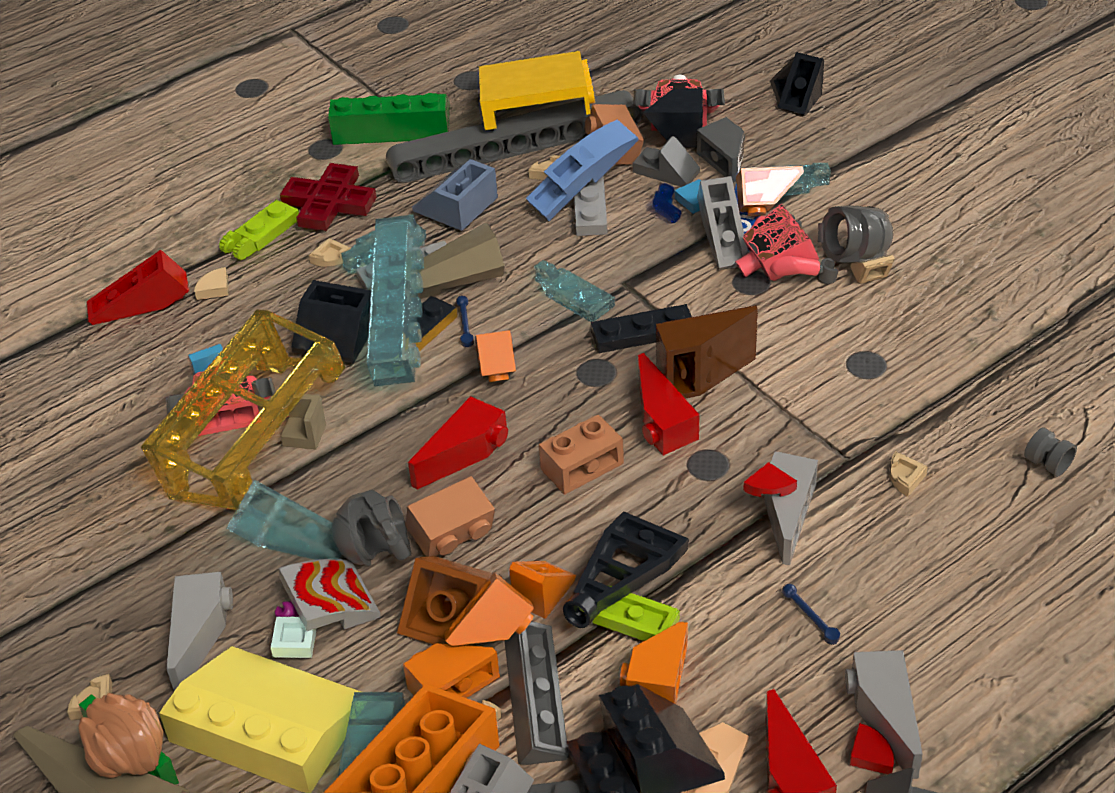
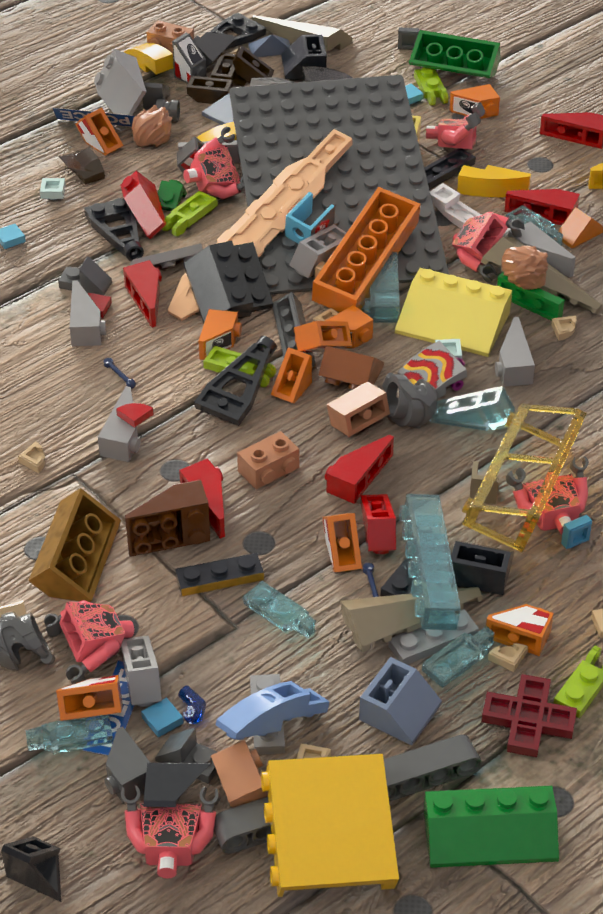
camera: 175 degrees right, 0 degrees up
(307, 261) = (523, 626): none -> orange slope
(445, 372) = (379, 523): none -> red slope
(820, 342) = (75, 548): none -> pearl gold slope

